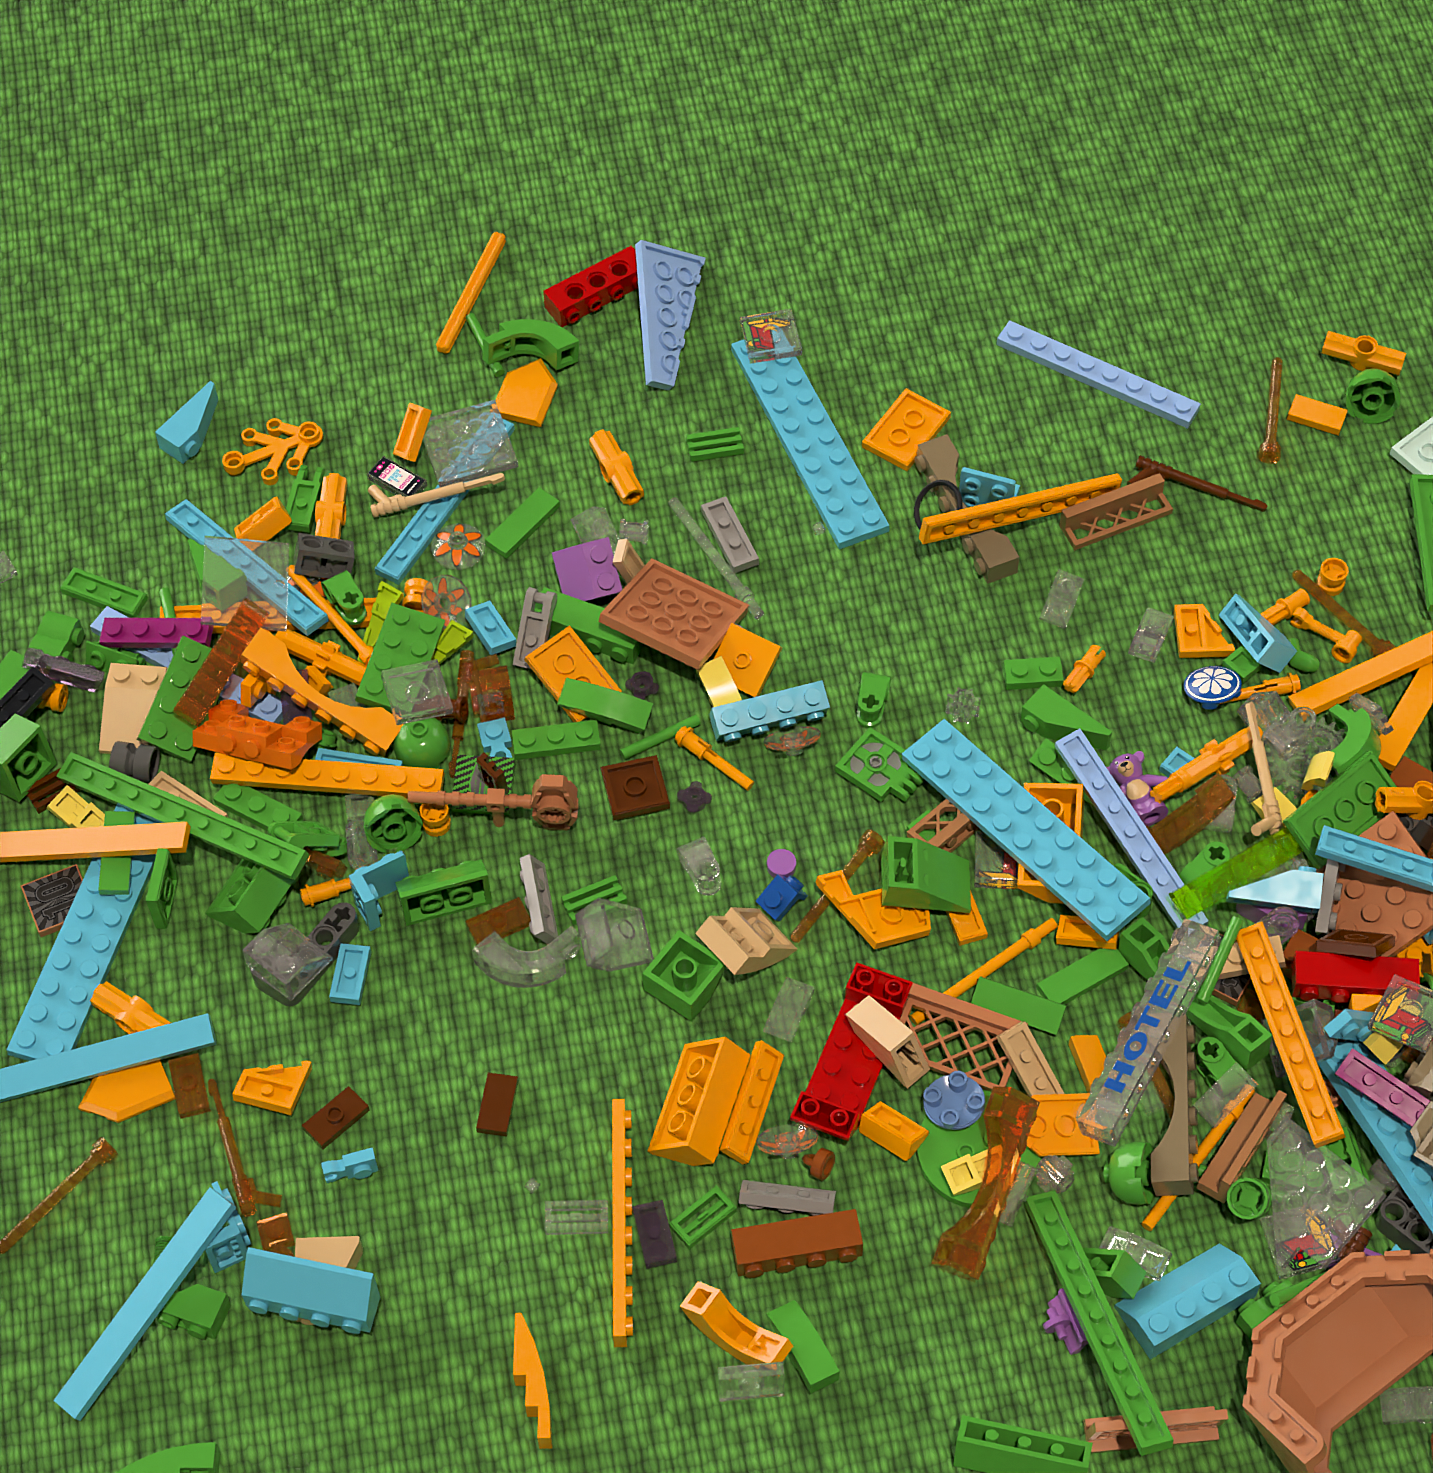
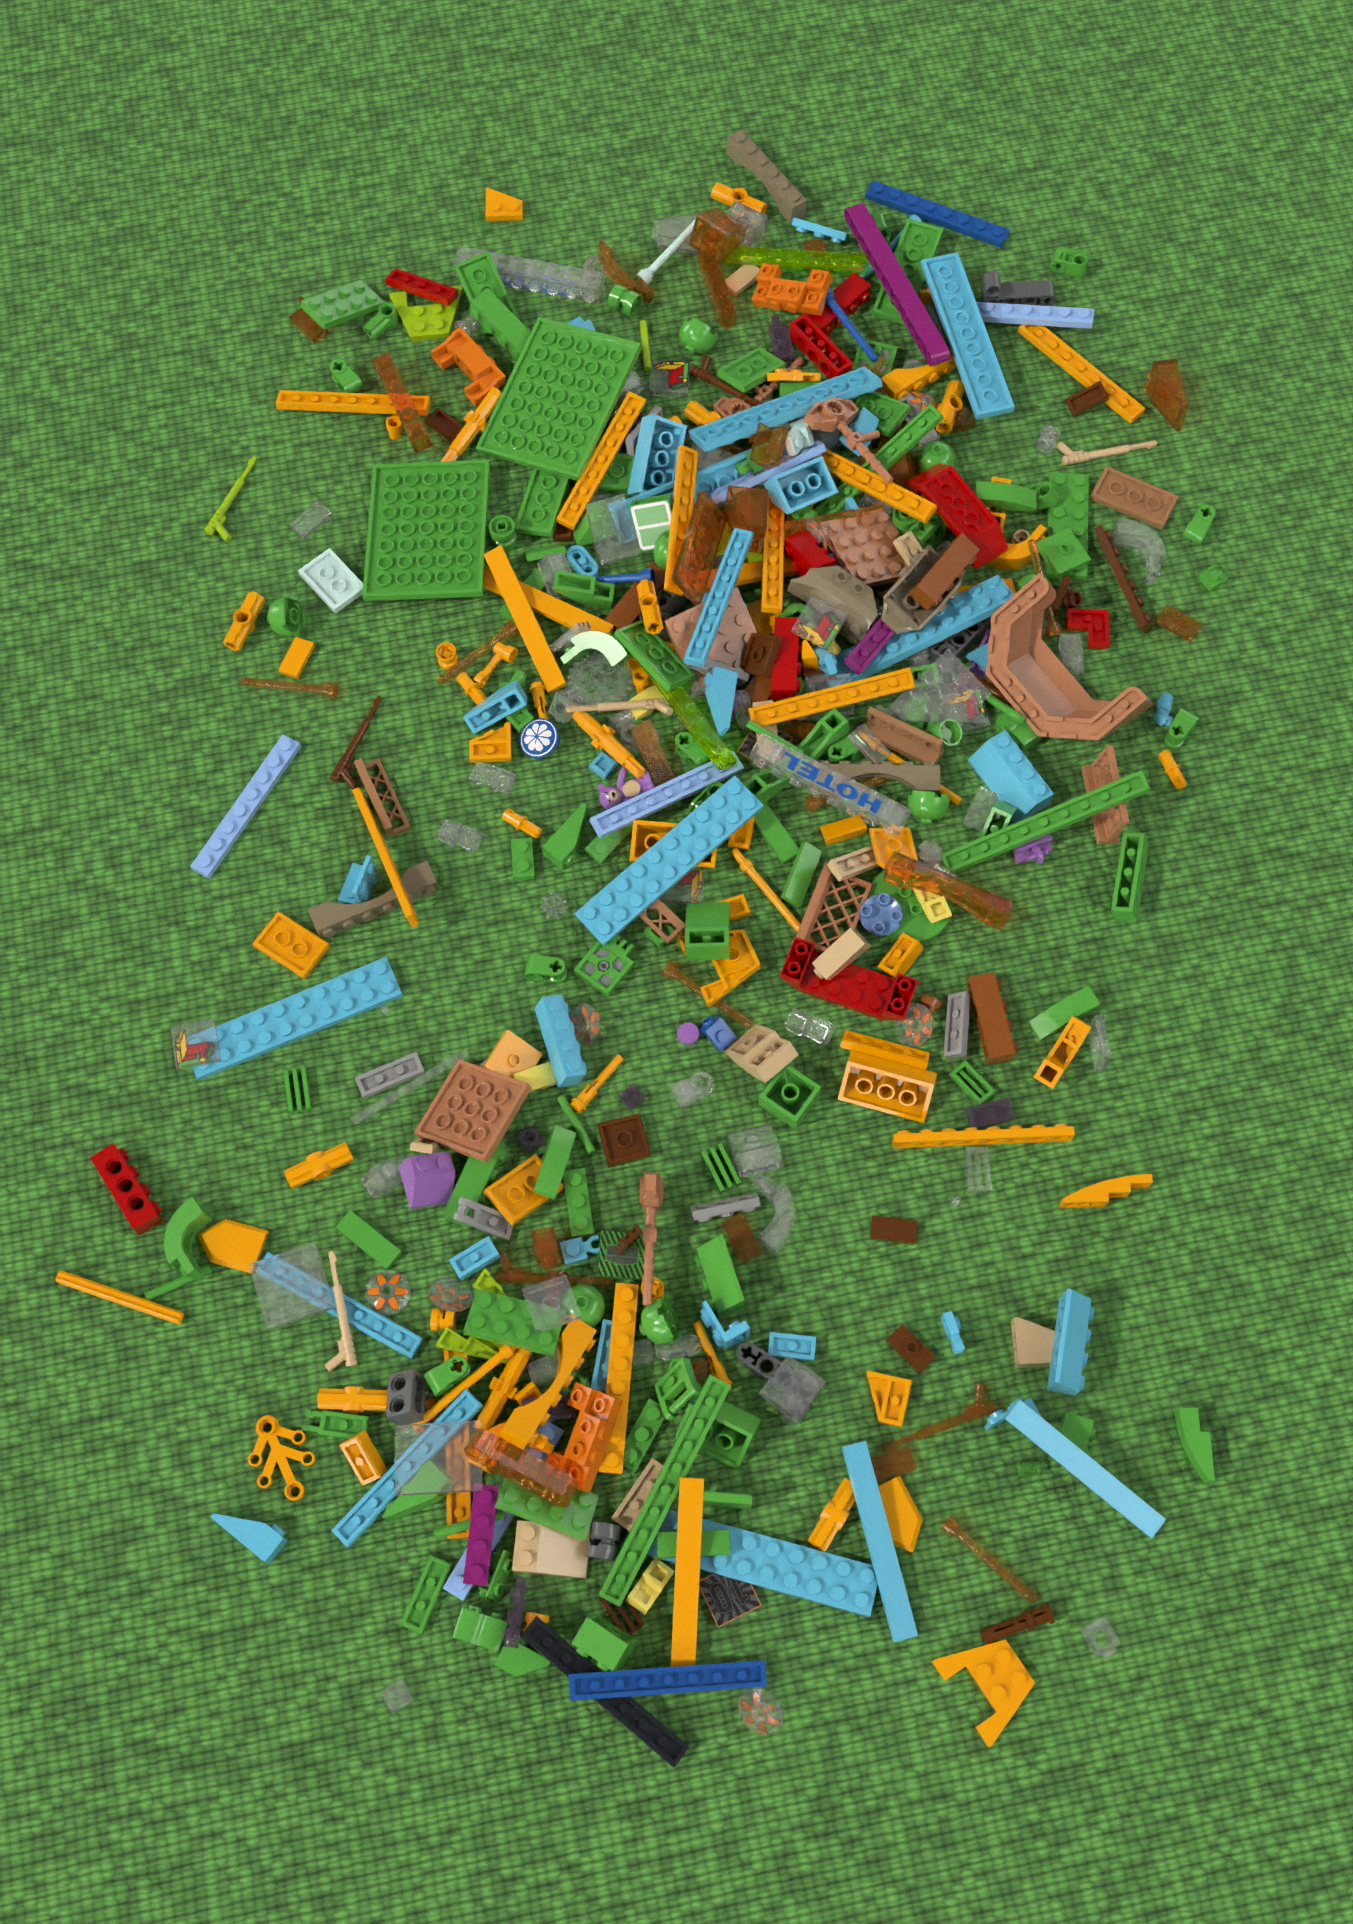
camera: 90 degrees left, 10 degrees up
(276, 1234) = (1009, 1385): clear orange plate -> none
(396, 478) = (318, 1347): tile -> none
(412, 432) = (278, 1332): light orange tile -> none
(634, 531) = (384, 1148): clear bush -> none
(666, 304) = (153, 1128): light blue wing -> none
(931, 485) = (373, 899): black tyre -> none
(1287, 736) = (592, 686): clear piece -> none
(1318, 770) = (626, 667): light yellow slope -> none

